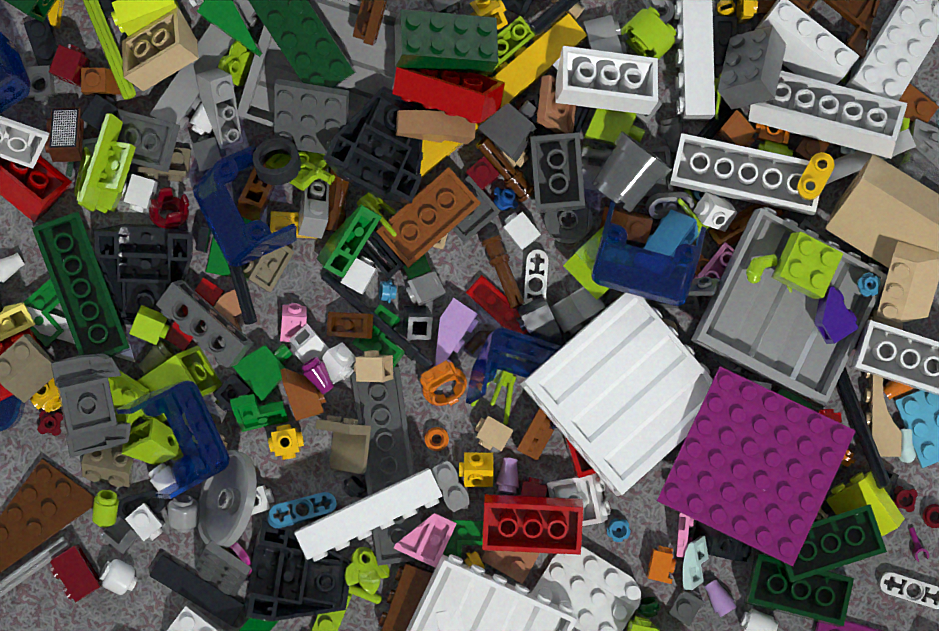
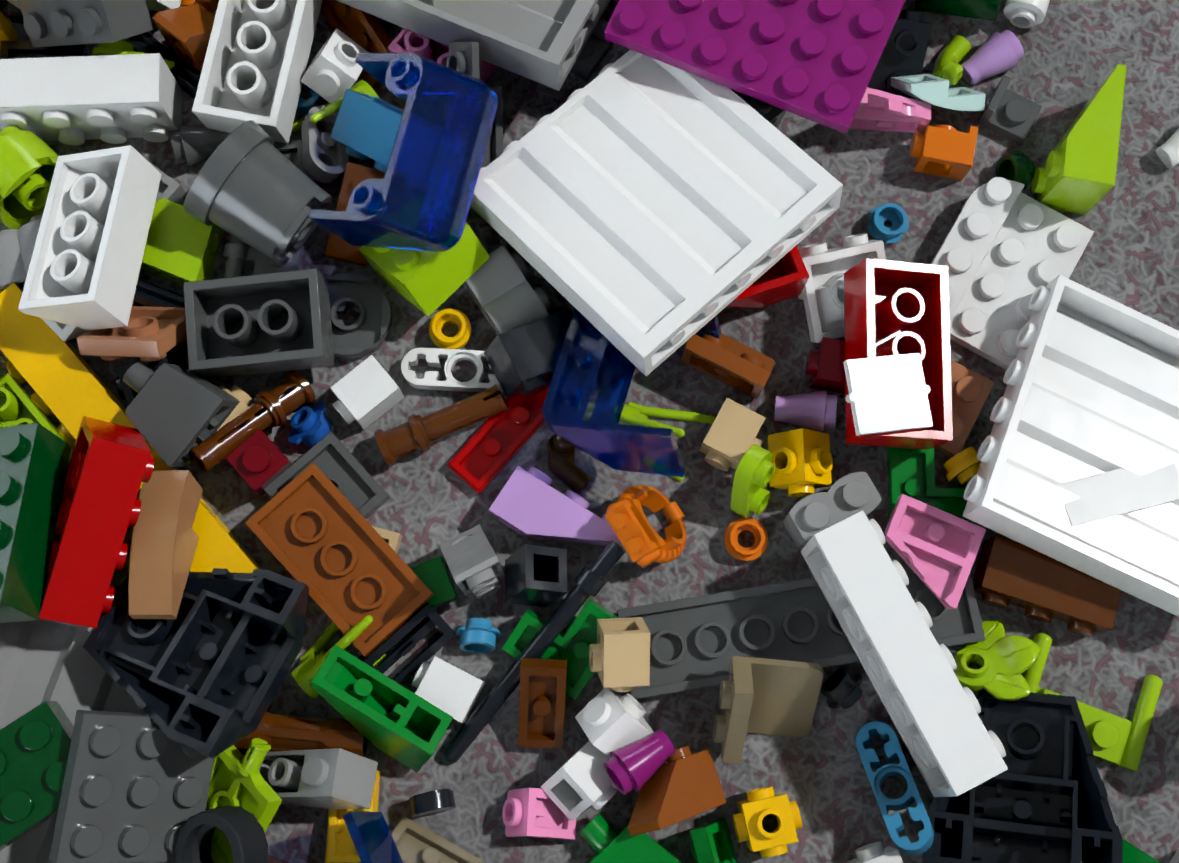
camera: 95 degrees left, 10 degrees down
(300, 265) = (431, 802): none -> black tile
(465, 442) = (752, 481): none -> lime plate
(506, 514) = (887, 394): none -> white piece
(556, 284) = (446, 317): none -> yellow plate
(720, 572) = (946, 63): none -> lime arm

